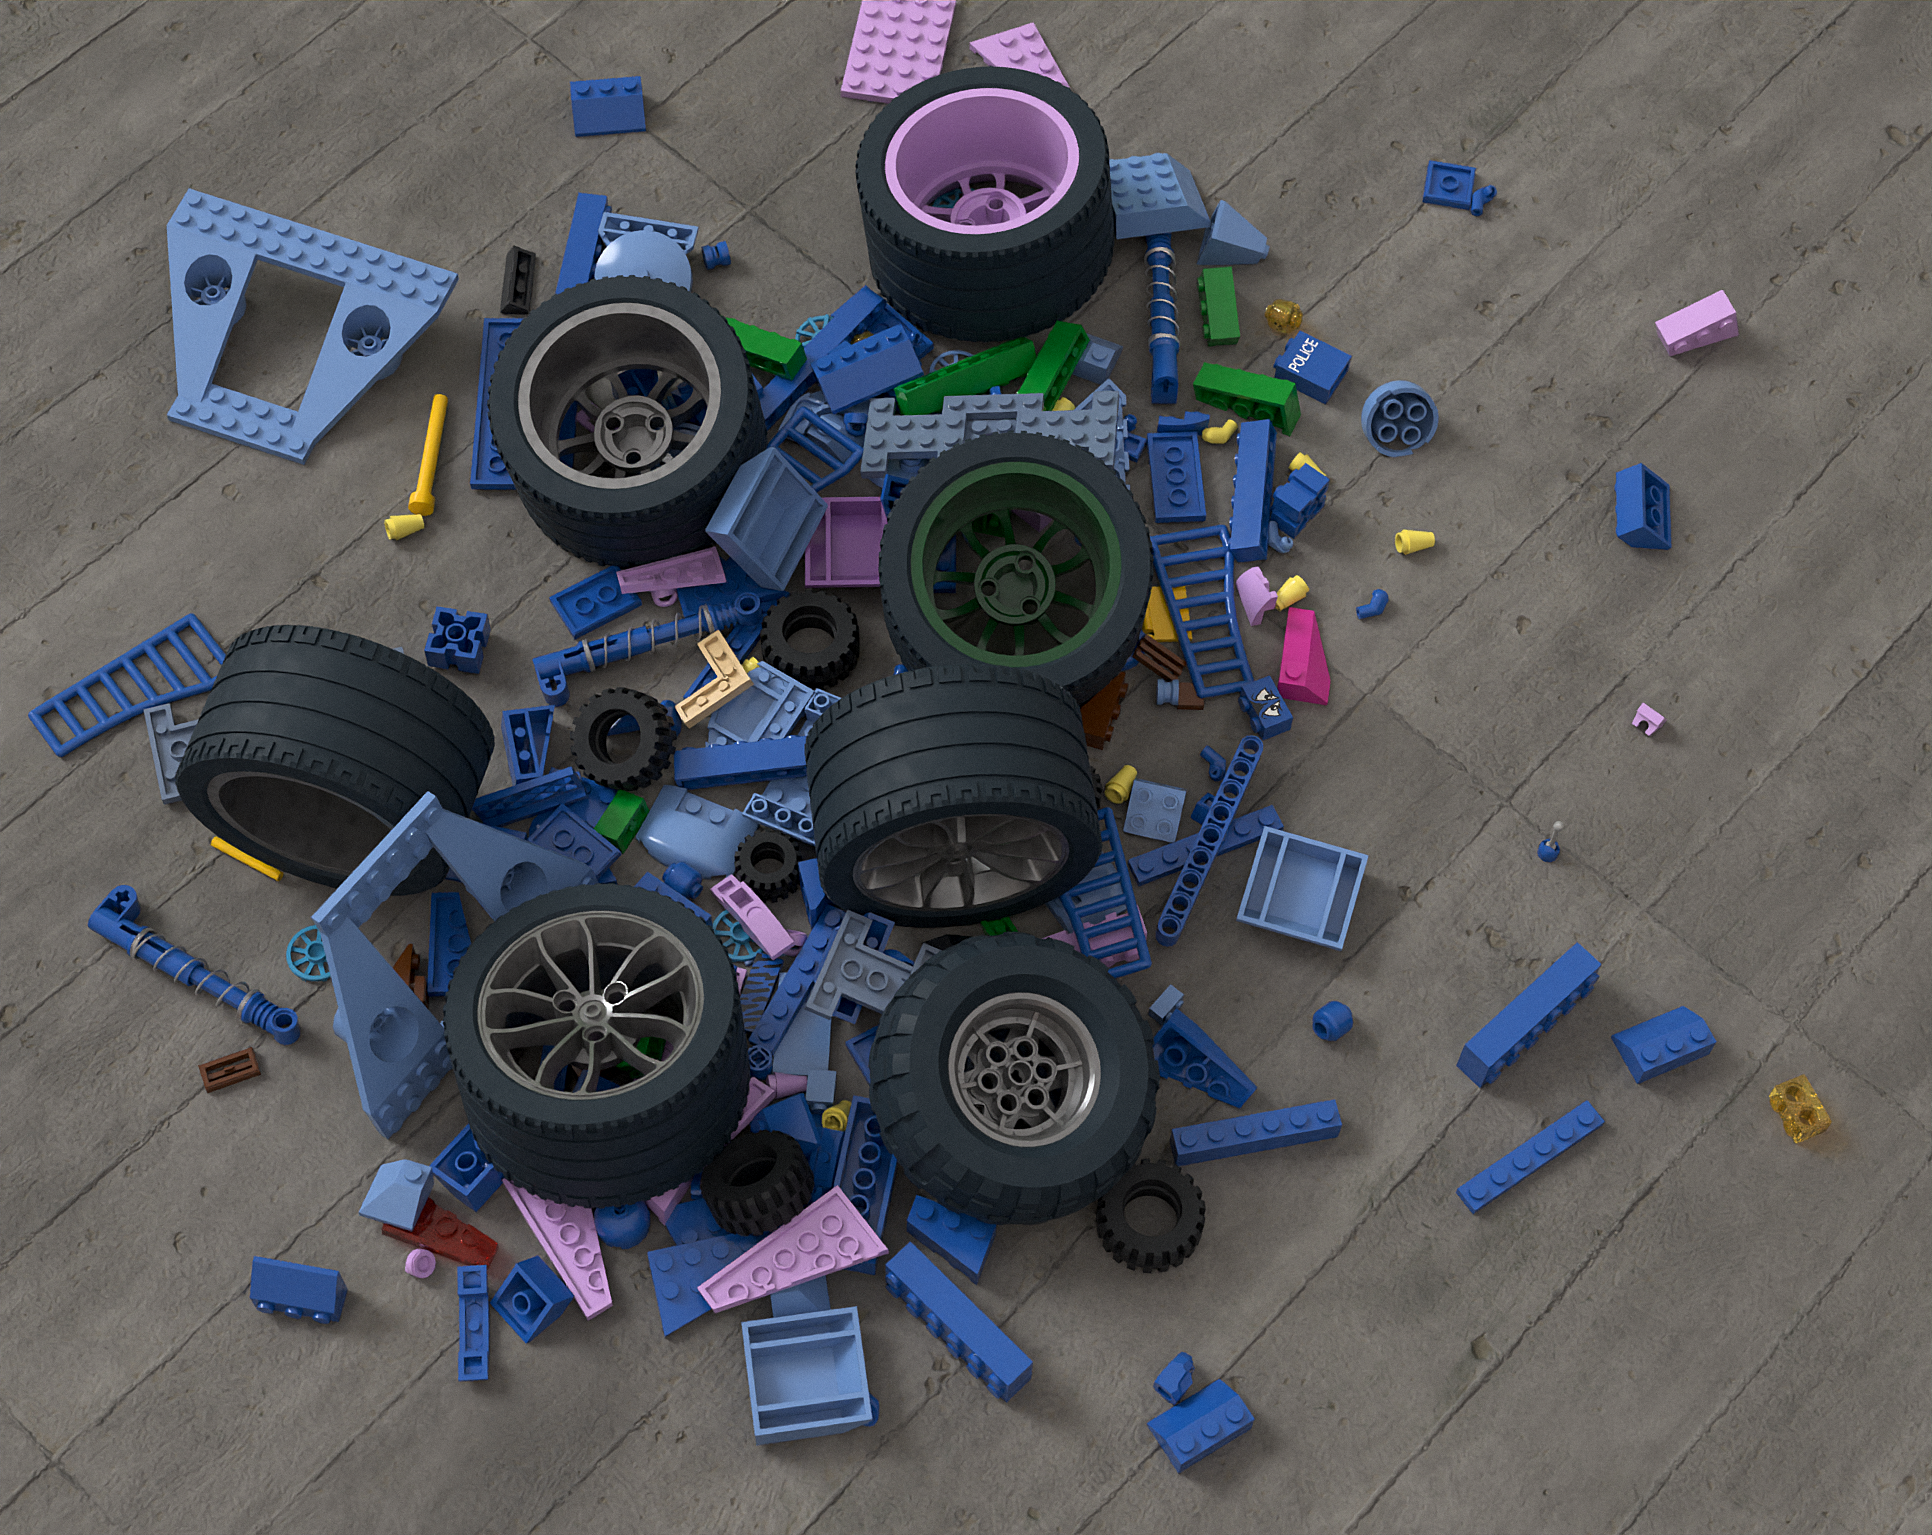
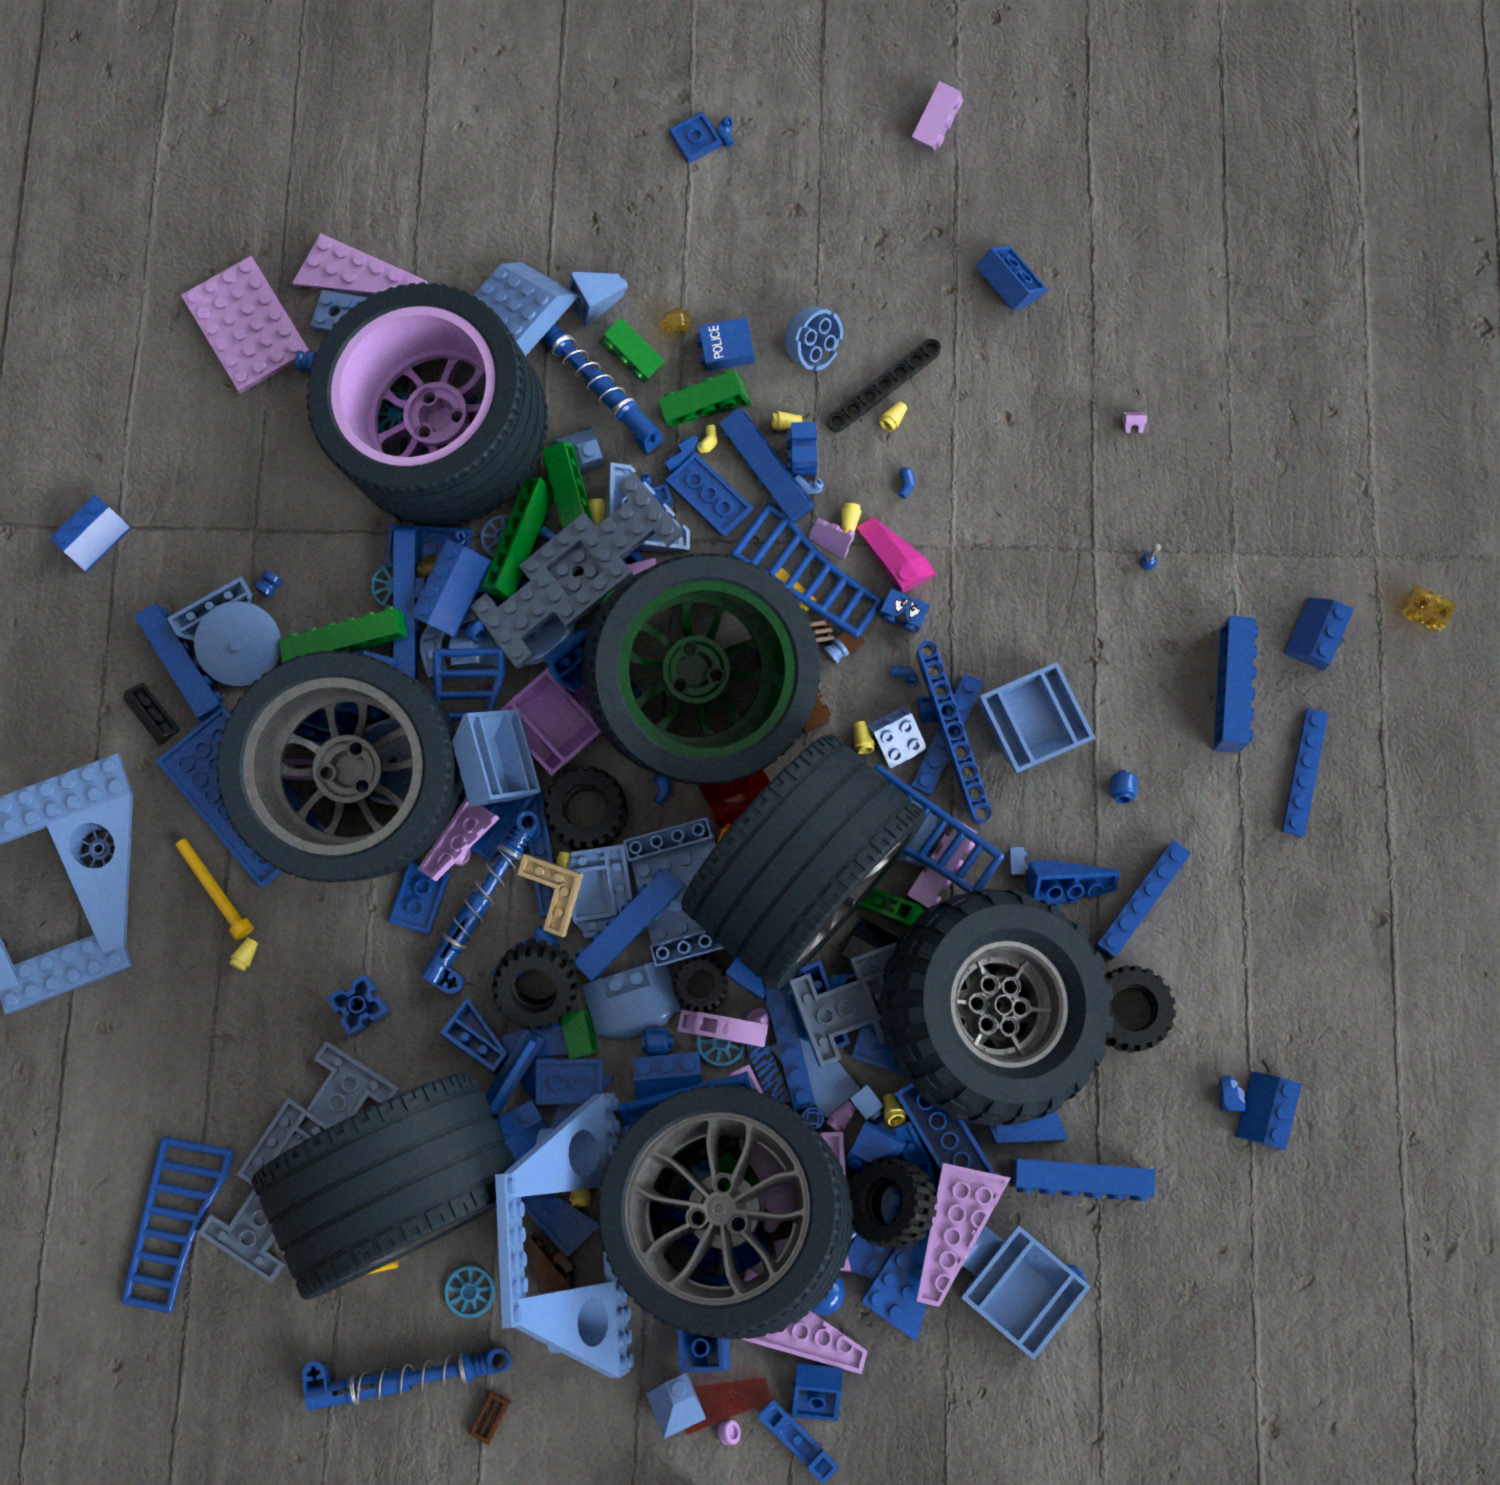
camera: 35 degrees left, 15 degrees up
(1442, 505) = (888, 376): none -> black beam

